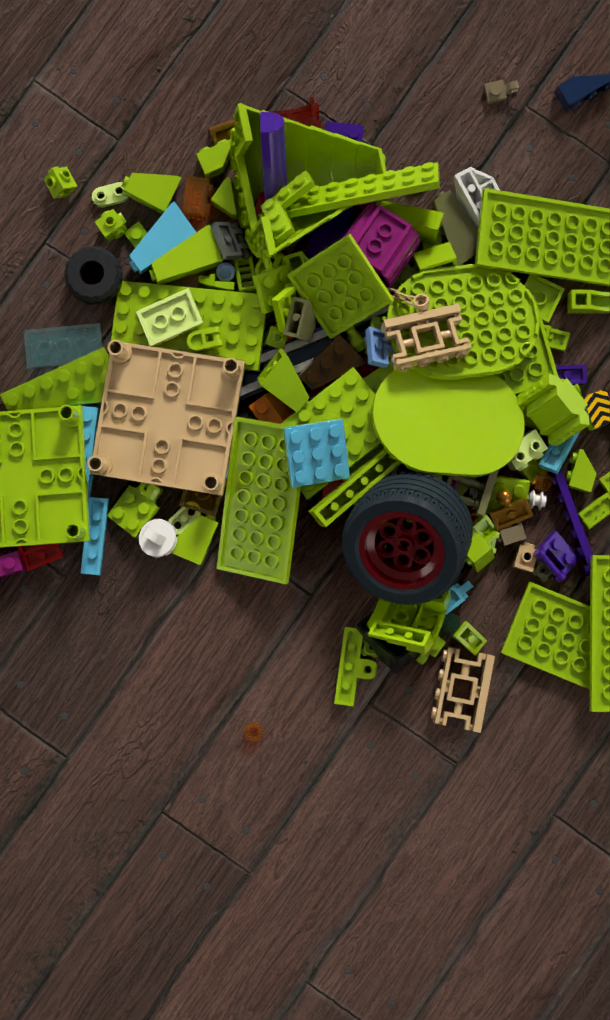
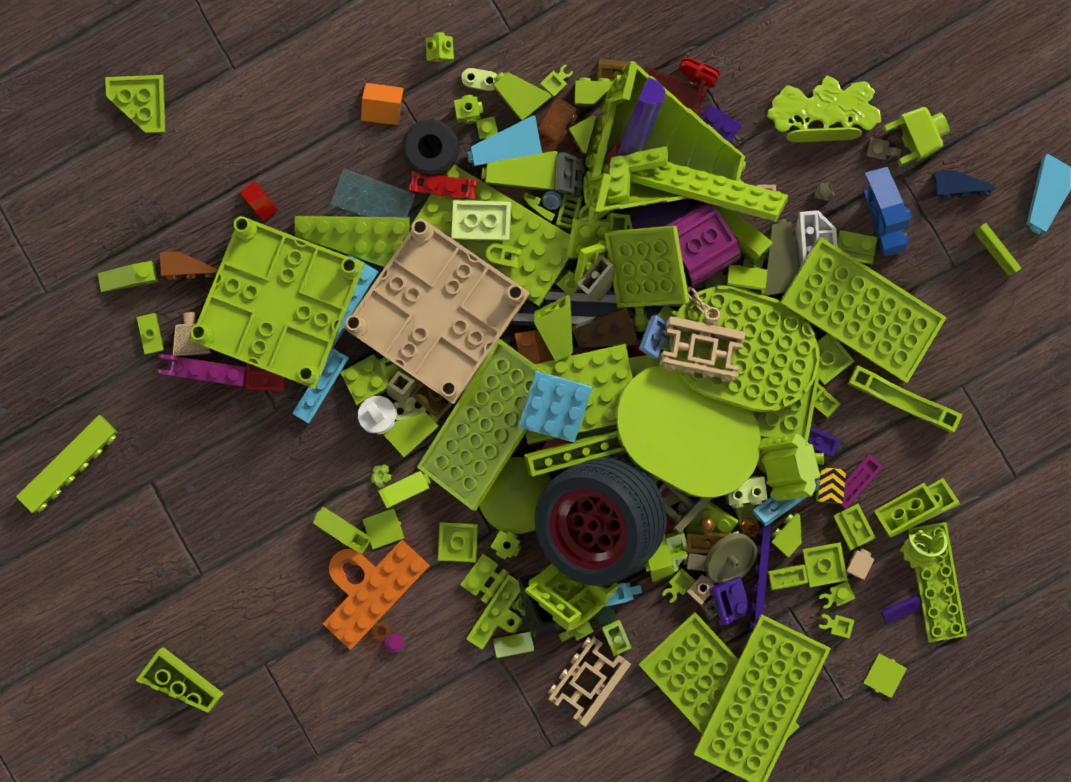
camera: 20 degrees right, 0 degrees up
(32, 258) = (381, 104): none -> orange slope
(91, 866) = (178, 680): none -> lime wedge
(121, 303) = (443, 186): none -> red plate
(168, 501) = (401, 386): none -> olive slope
(175, 658) = (342, 530): none -> lime slope
(179, 165) = (555, 82): none -> lime plate
(187, 591) = (380, 475): none -> lime plant
(212, 638) = (383, 528): none -> lime piece
(214, 594) = (405, 489): none -> lime slope
(232, 702) = (376, 592): none -> orange plate
(270, 737) = (394, 643): none -> magenta plate
(285, 619) = (457, 542): none -> lime tile
(301, 95) = (699, 71): none -> red arm
(318, 555) = (514, 497): none -> lime dish
(319, 639) = (480, 574): none -> lime plate
(323, 597) = (499, 541): none -> lime brick
(379, 688) = (513, 644): none -> lime slope
(433, 72) = (827, 105): none -> lime plant
(466, 151) = (824, 192): none -> olive plate
(504, 562) = (680, 583): none -> lime plate
(519, 183) = (857, 246): none -> lime plate
(527, 58) = (920, 133): none -> lime piece
(532, 137) = (887, 211): none -> blue wedge
(539, 517) = (730, 558): none -> olive piece

